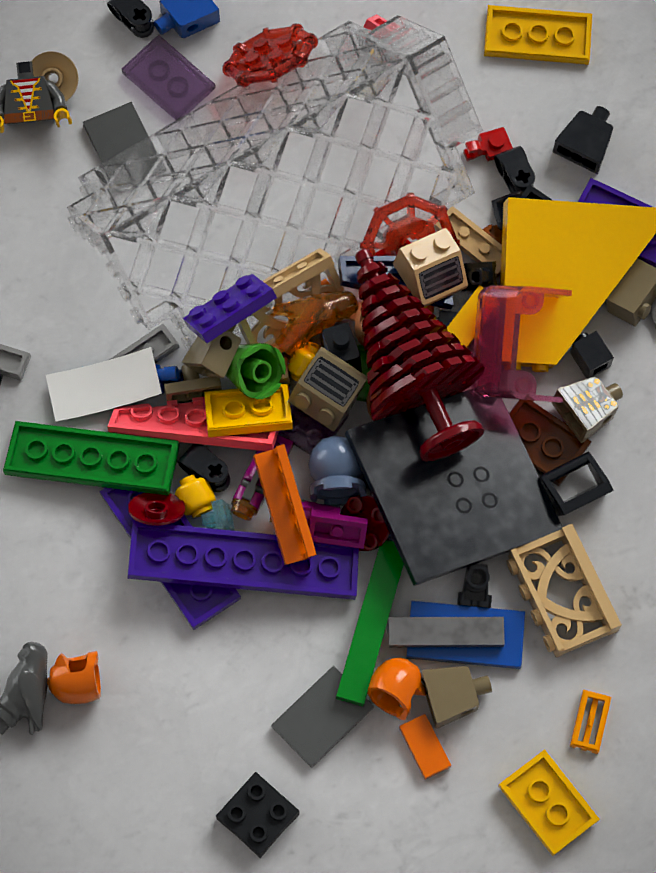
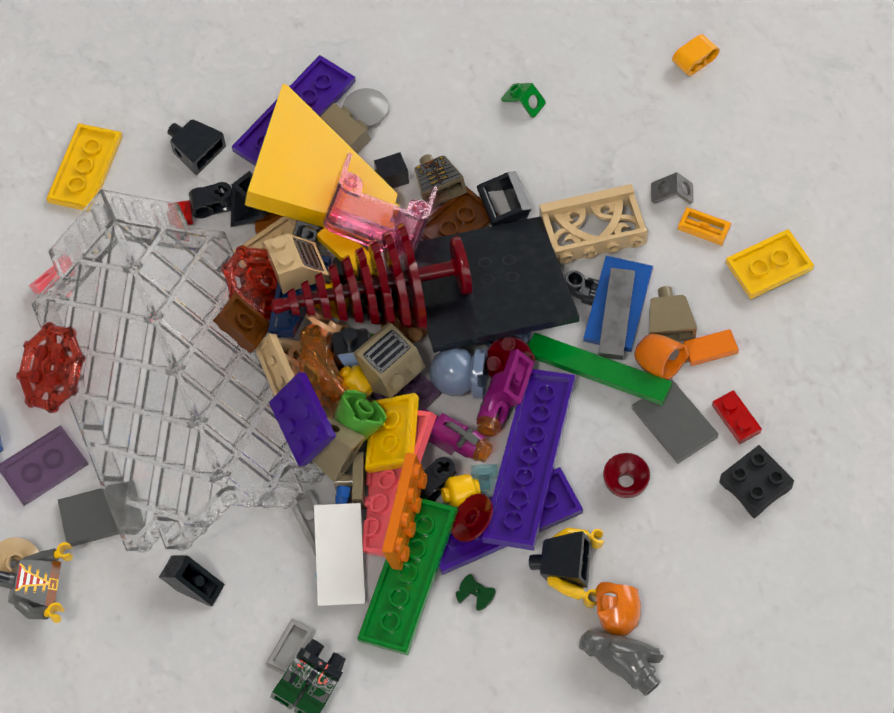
camera: 75 degrees left, 10 degrees down
(56, 248) = (191, 579): none -> black slope
(83, 541) = (470, 586): none -> dark green piece
(126, 617) = (567, 562): none -> black torso
(144, 434) = (405, 506): none -> orange plate
(237, 654) = (626, 465): none -> dark red piece
(284, 505) = (490, 410): orange fence -> none
(339, 785) = (736, 417): none -> red plate
(340, 226) = (242, 323): none -> reddish brown plate
(632, 673) = (671, 186): none -> flat silver bracket

